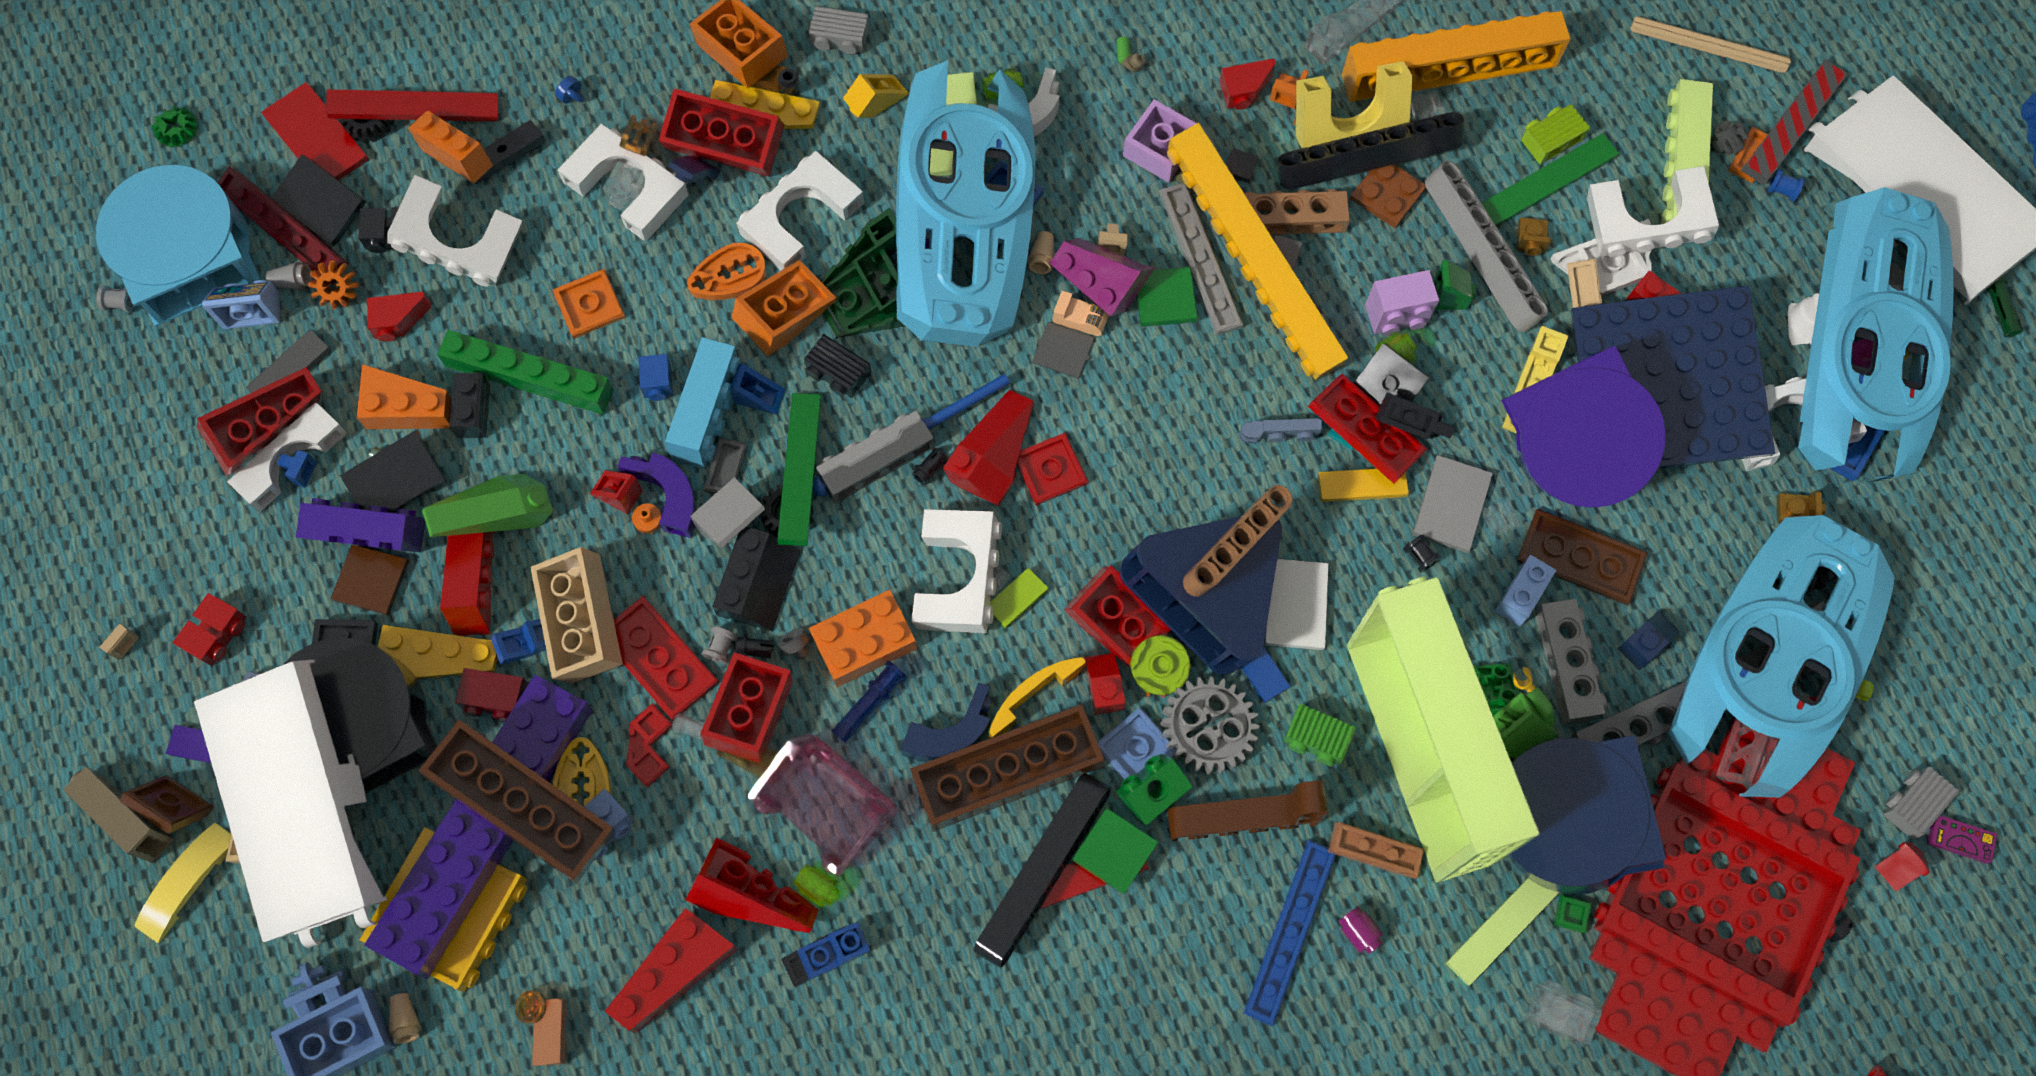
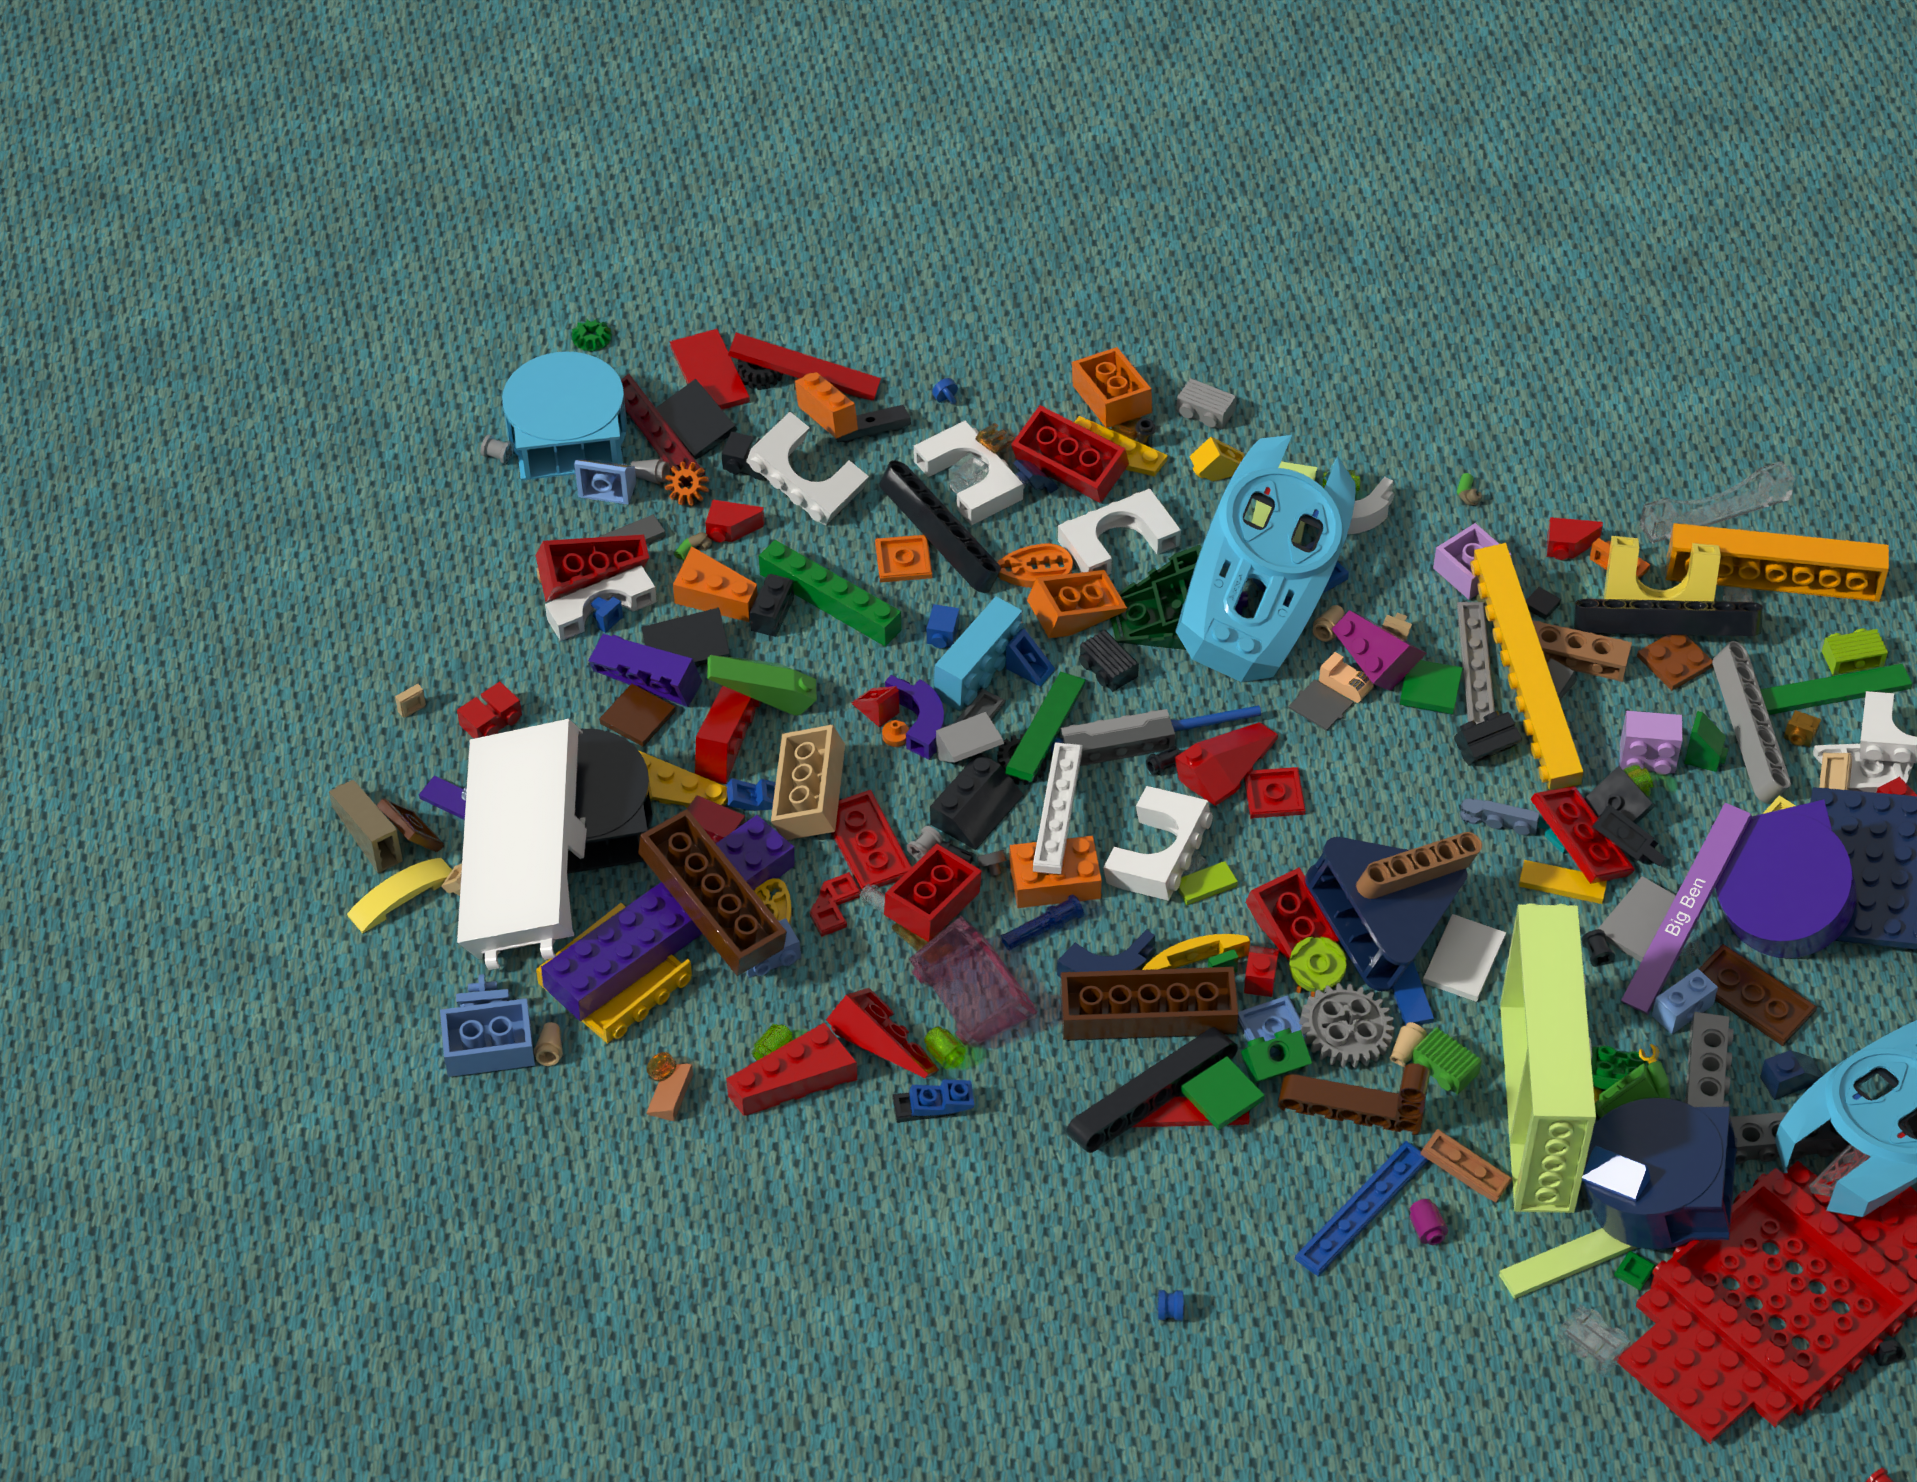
camera: 20 degrees right, 20 degrees down
(360, 353) = (696, 540): none -> arm
(614, 257) = (940, 526): none -> black beam
(638, 941) = (771, 1040): none -> clear neon green brick
(844, 571) = (1057, 808): none -> white tile
(1065, 694) = (1225, 959): none -> green tile
(1241, 343) = (1487, 738): none -> black brick
(1275, 726) = (1406, 1041): none -> tan cone
(1504, 493) = (1686, 908): none -> medium lavender tile
(1551, 849) = (1616, 1173): none -> slope

